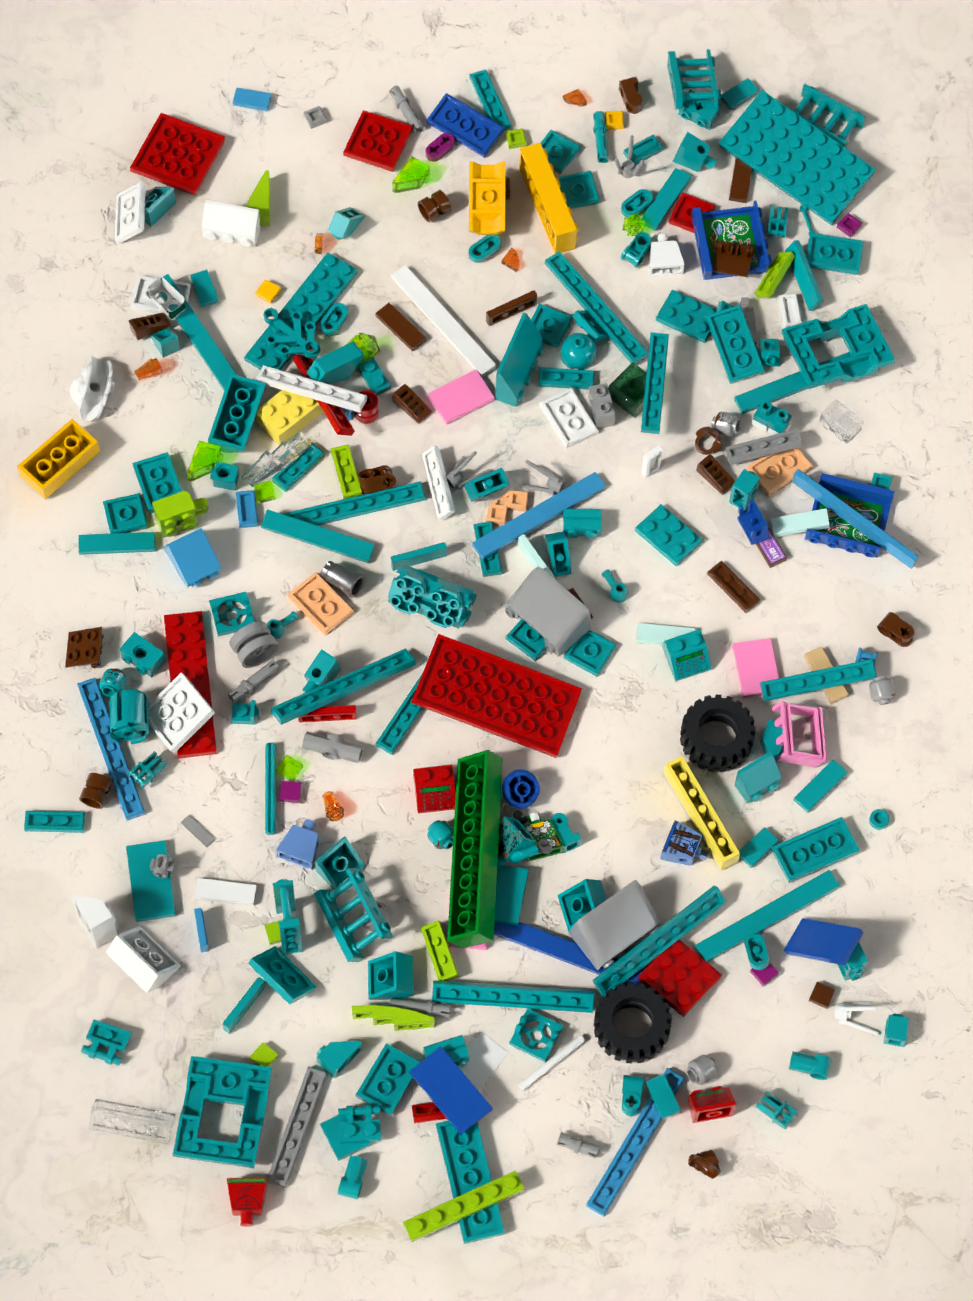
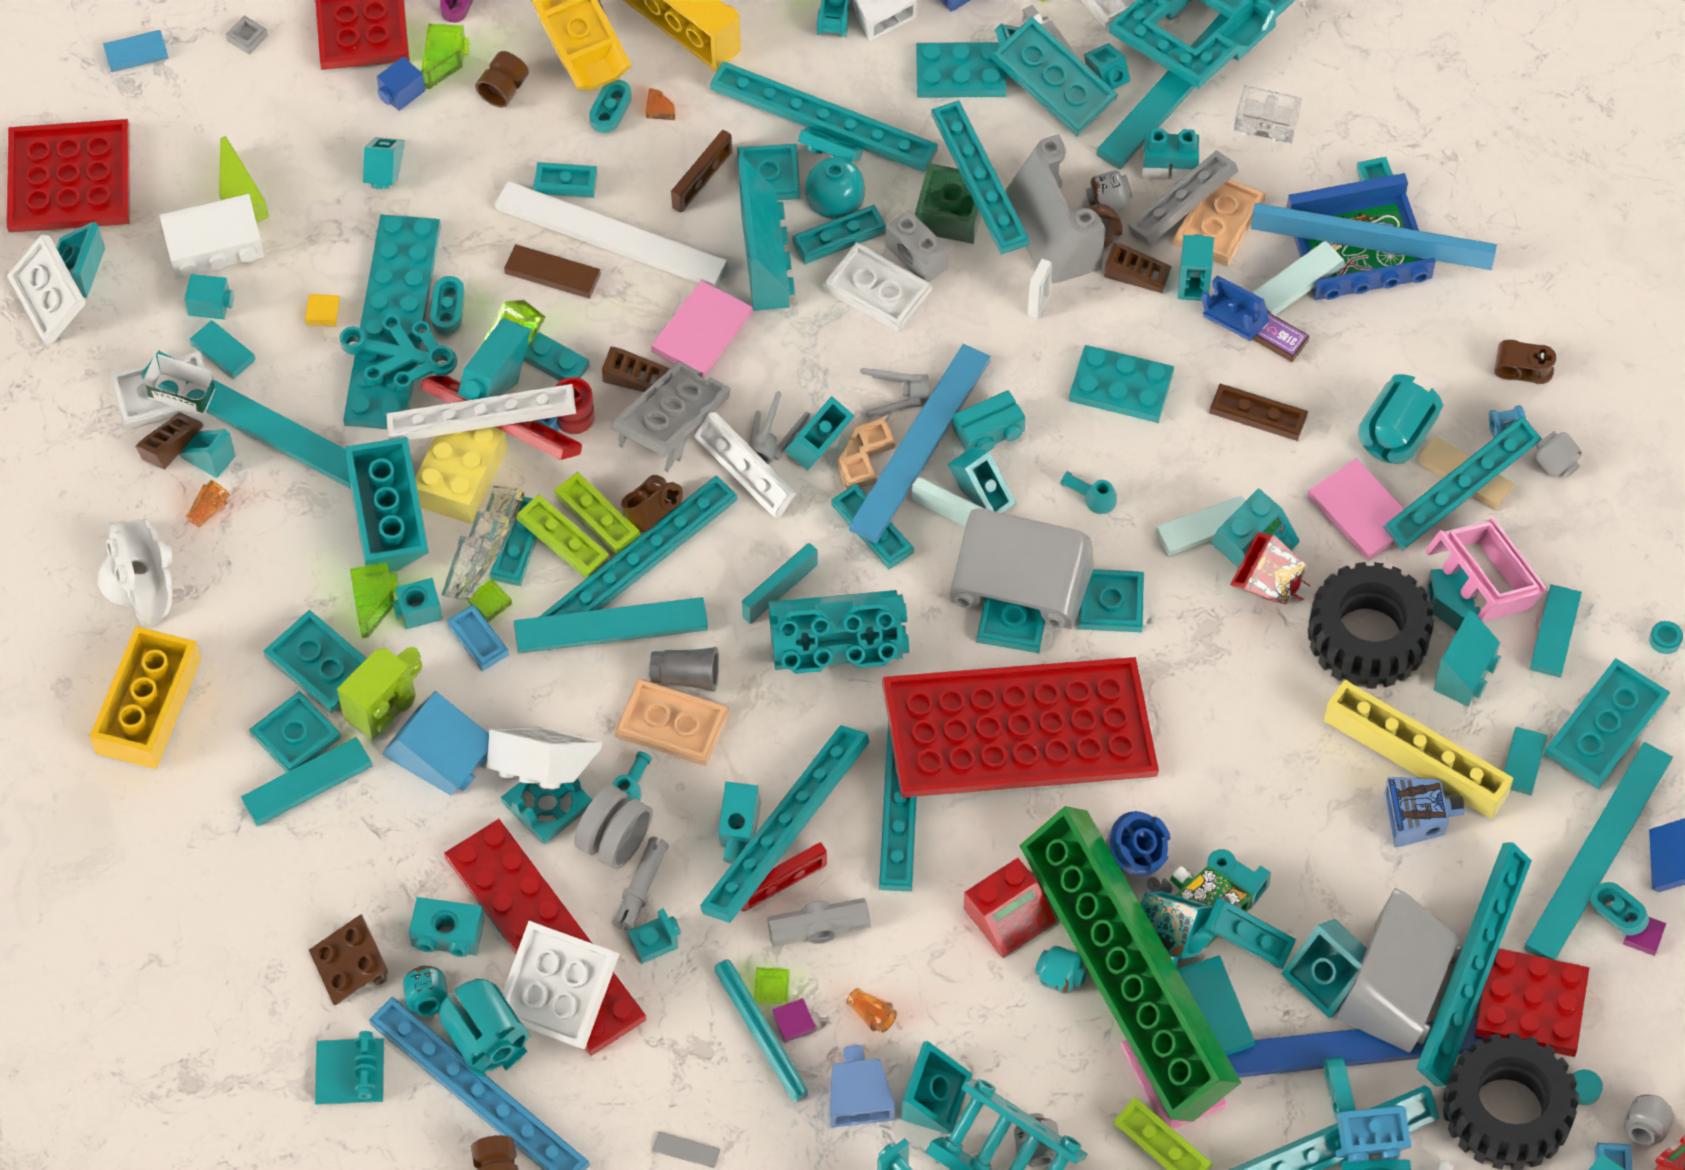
camera: 25 degrees left, 5 degrees down
(53, 705) = (350, 1070): none -> teal hinge
(149, 768) = (556, 1096): teal arm -> none
(211, 256) = (208, 296): none -> teal brick
(238, 587) = (539, 755): none -> white slope
(318, 243) = (358, 203): clear orange tile -> none
(319, 475) = (562, 536): none -> lime plate
(379, 183) = (400, 84): none -> blue brick
(415, 434) = (670, 411): none -> light grey piece
(436, 278) = (565, 179): none -> teal plate
(548, 865) = (1250, 933): none -> teal tile
(548, 969) = (1338, 1085): none -> teal beam
(548, 1001) = (1373, 1133): none -> dark azure bracket
(680, 1035) = (1588, 1086): none -> teal tile
(681, 678) = (1271, 571): none -> torso
(682, 442) = (1055, 233): none -> light grey windscreen
(803, 628) = (1399, 420): none -> teal cylinder

